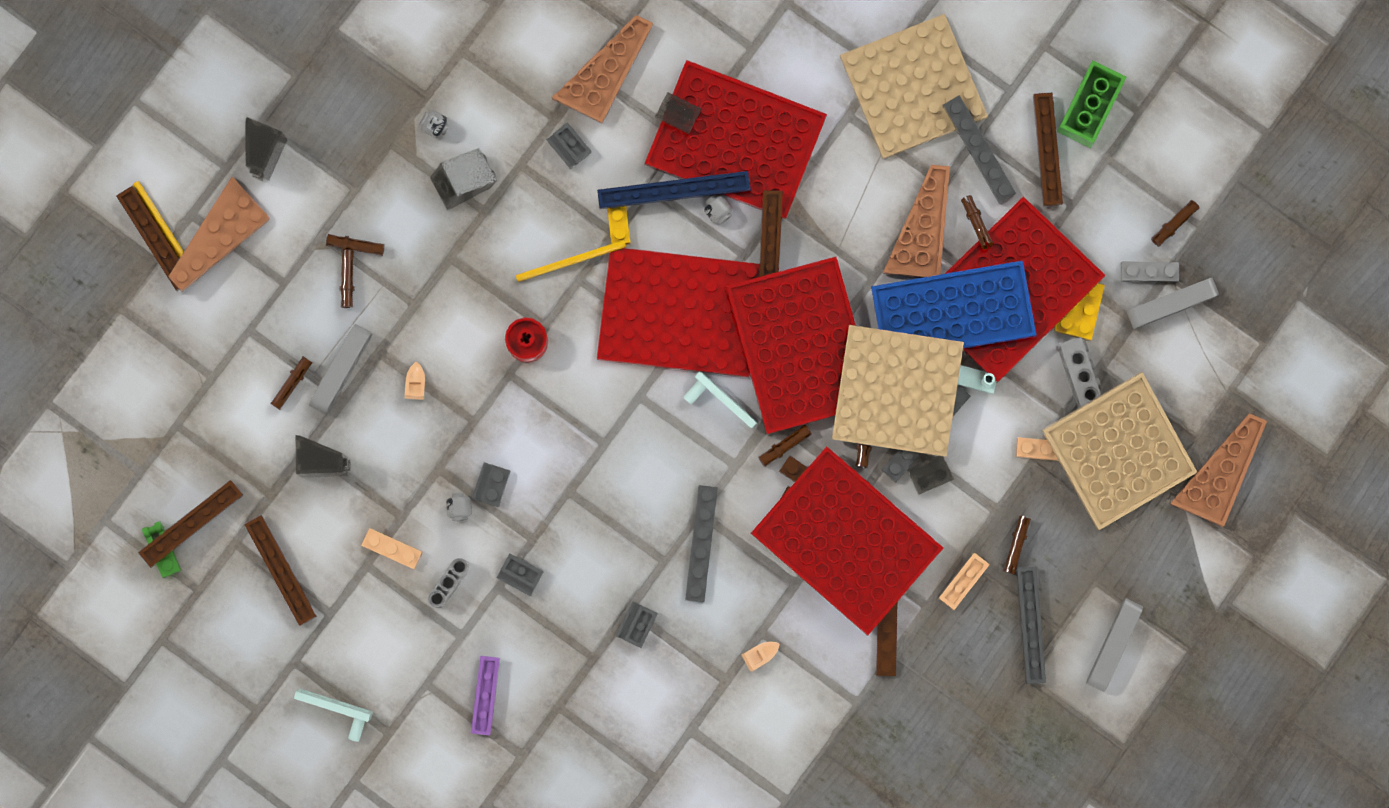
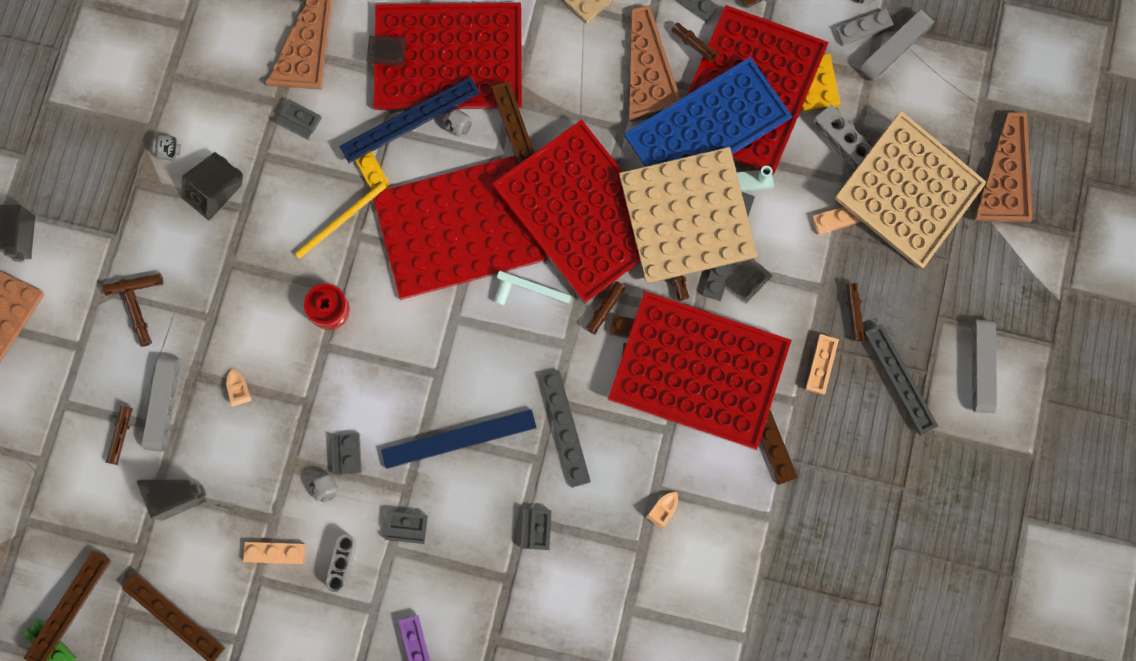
camera: 20 degrees left, 5 degrees down
(599, 513) = (458, 439): none -> dark blue tile

